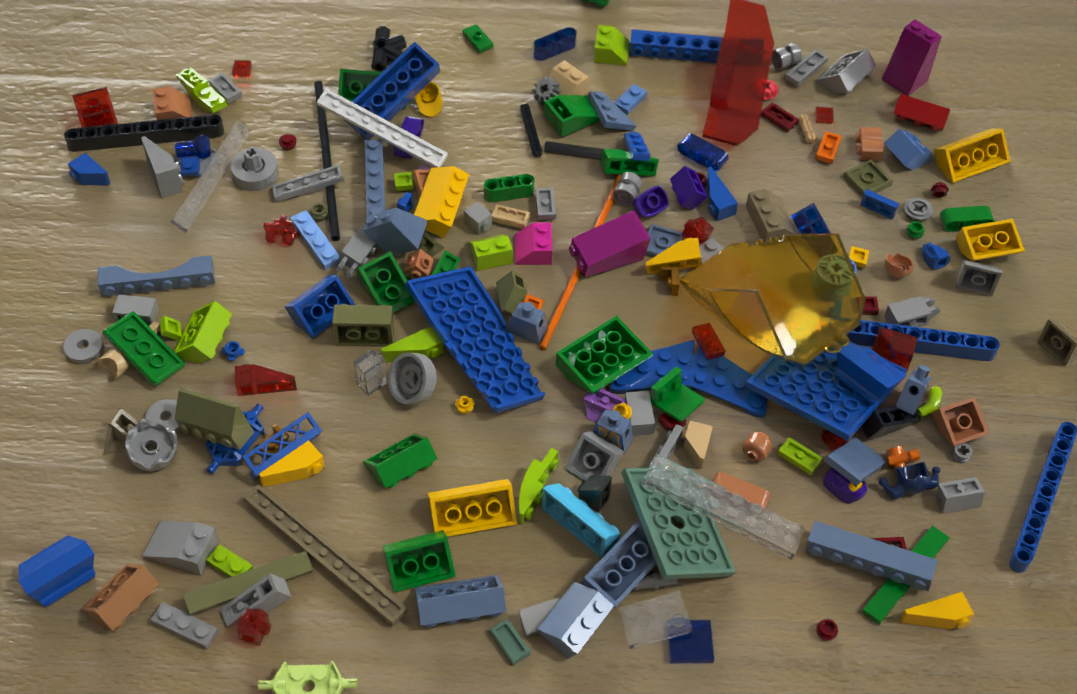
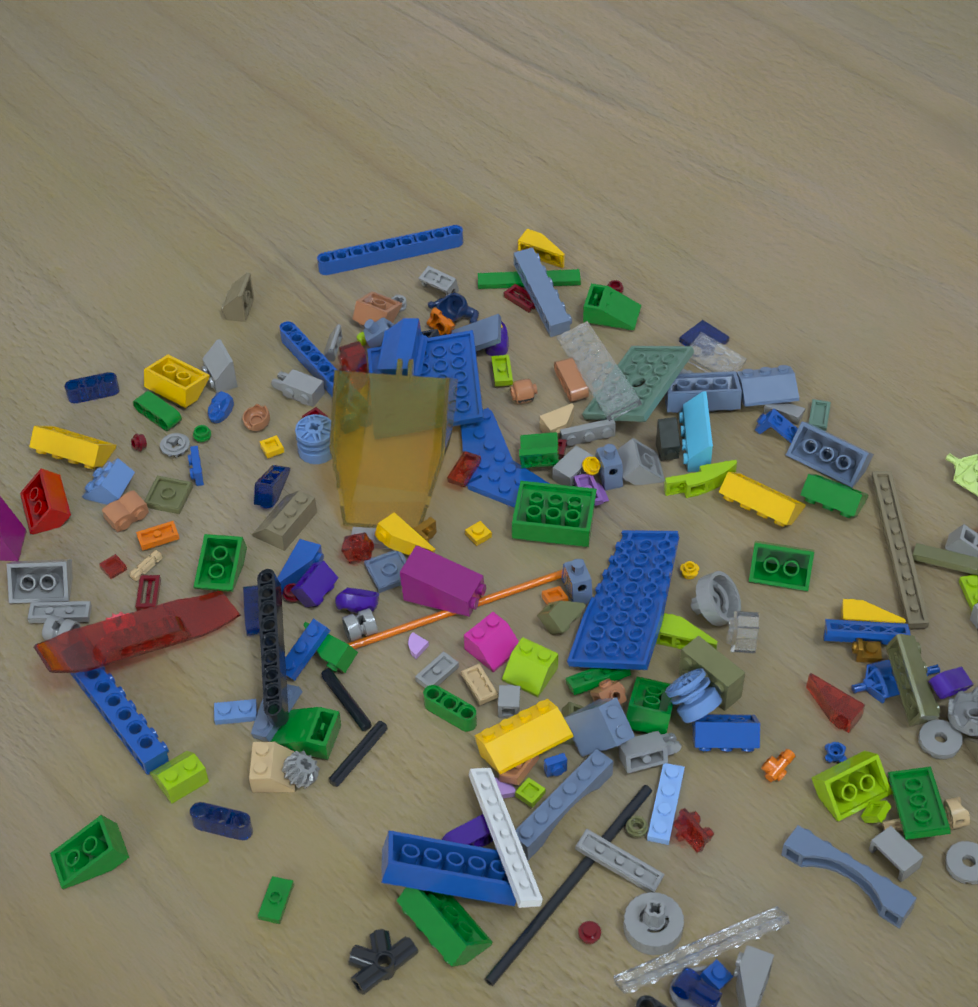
camera: 130 degrees left, 5 degrees down
(183, 446) = (950, 682): none -> dark purple beam
(262, 308) = (776, 767): none -> orange plate
(356, 288) = (693, 695): none -> medium blue wheel
(528, 588) = (778, 423): none -> blue bracket
(581, 211) = (417, 645): none -> lavender tile
(641, 314) = (478, 533): none -> yellow plate
(652, 124) = (272, 648): none -> black beam
(762, 155) = (220, 562): none -> green slope
(798, 593) = (610, 308): none -> green slope
(946, 371) = (333, 343): none -> light grey slope
(1031, 198) = (92, 387): none -> clear blue beam

